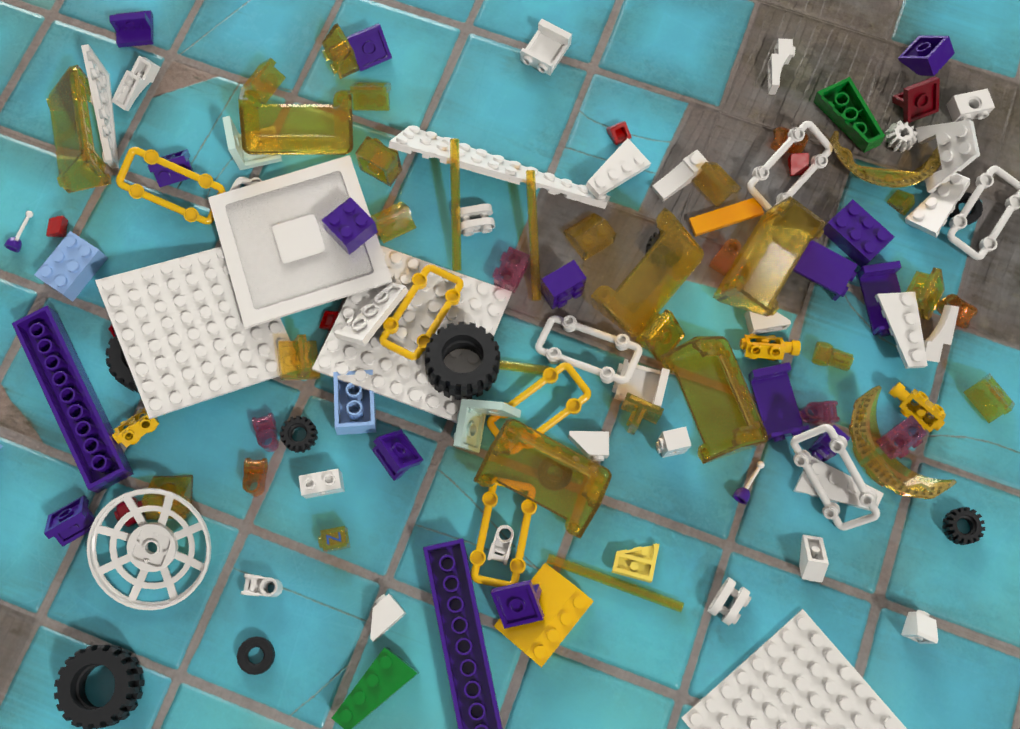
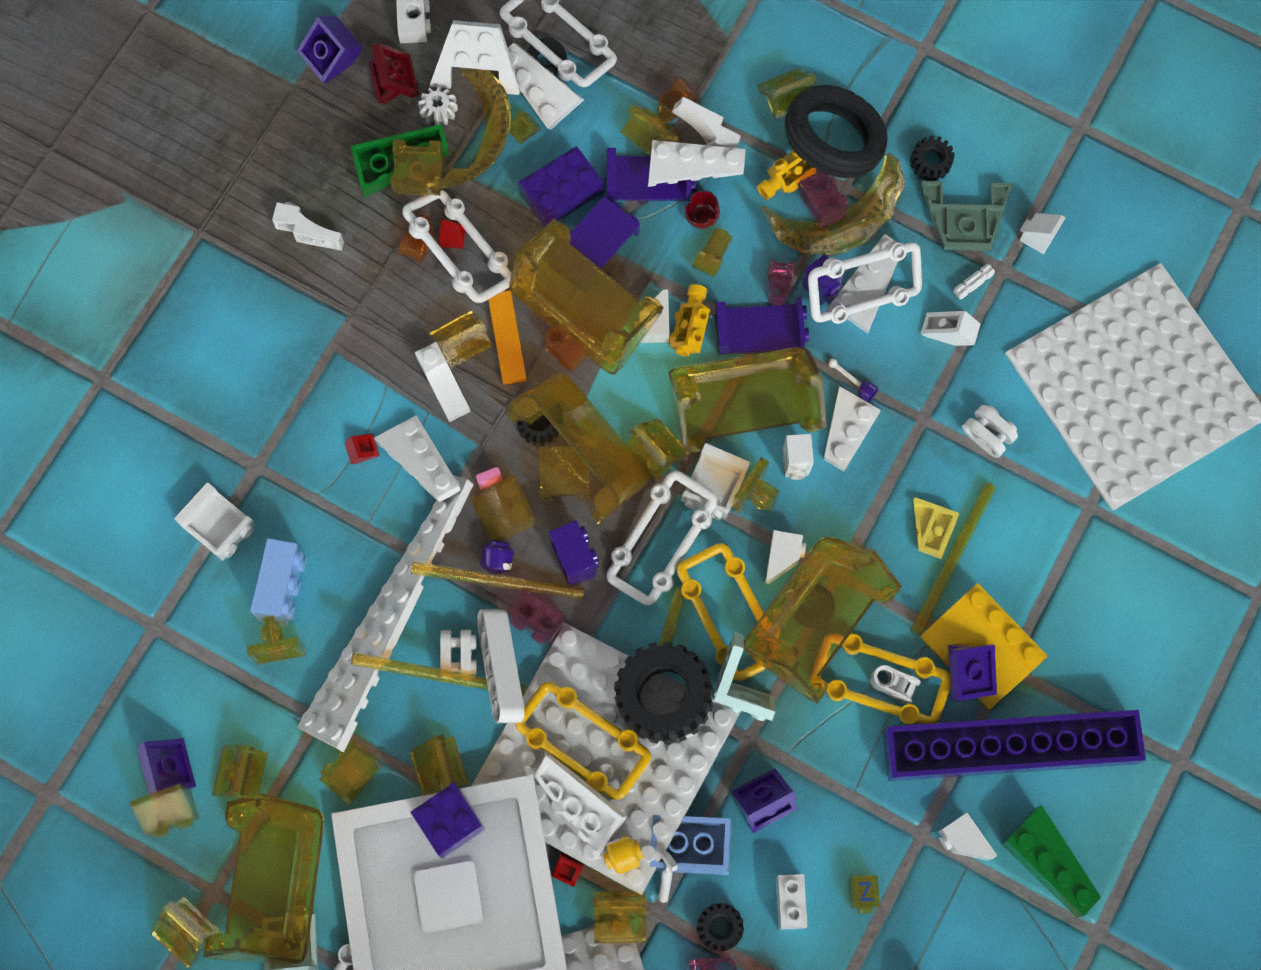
camera: 85 degrees left, 0 degrees up
(328, 386) = (666, 876): none -> white piece
(337, 348) = (623, 854): none -> yellow head
(464, 96) = (276, 646): none -> clear yellow bracket
(469, 247) = (500, 666): none -> white beam
(507, 91) = (278, 581): none -> light blue brick
(552, 234) = (497, 557): none -> dark purple head
(612, 219) = (488, 478): none -> bright pink tile
(620, 264) = (562, 474): none -> clear yellow panel
(707, 484) = (848, 428): none -> white wing
(843, 124) = (417, 168): none -> clear yellow panel
(859, 574) = (974, 281): none -> white axle
(866, 343) = (702, 209): none -> dark red hair
(910, 565) = (964, 224): none -> sand green wing
(992, 437) = (820, 154): none -> black tyre

